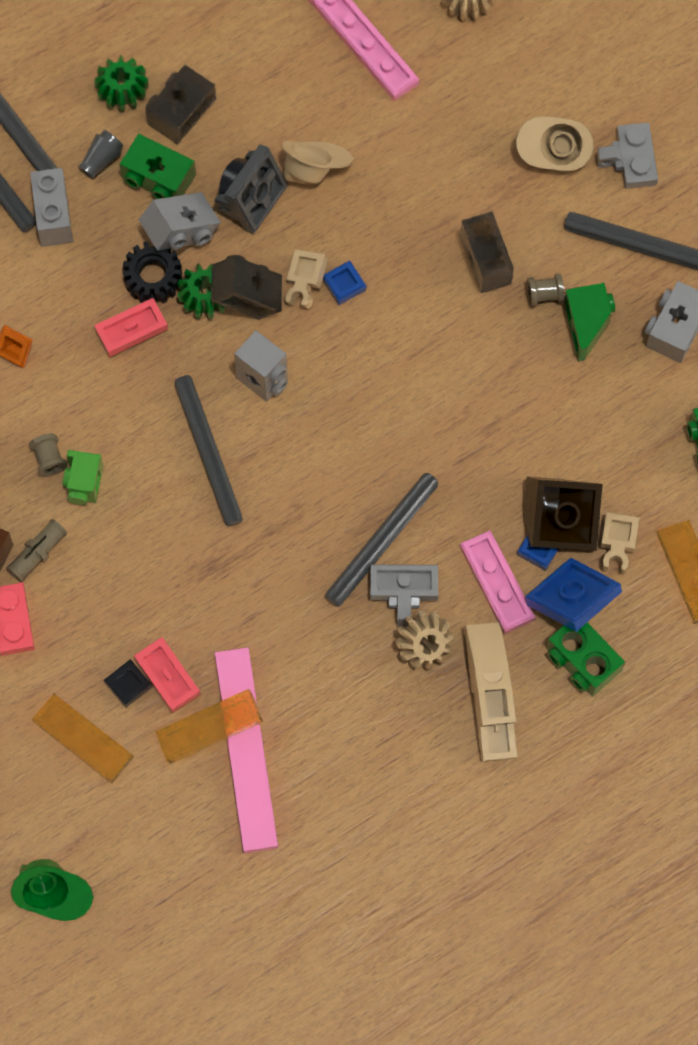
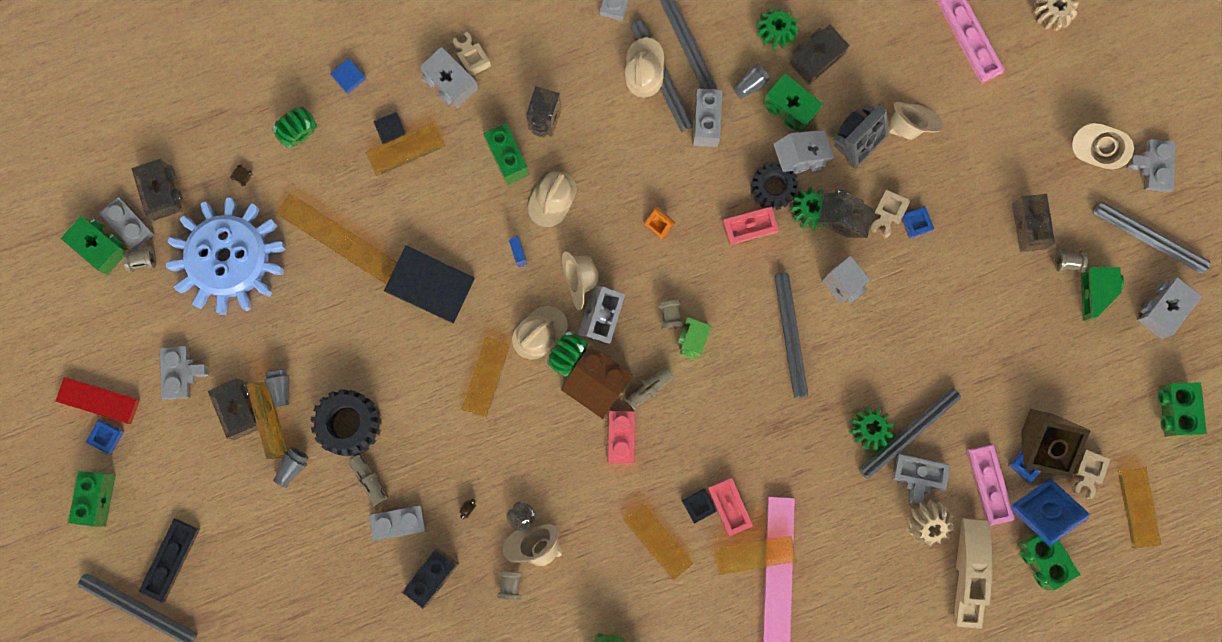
camera: 10 degrees right, 10 degrees up
(319, 535) = (879, 422): none -> green gear

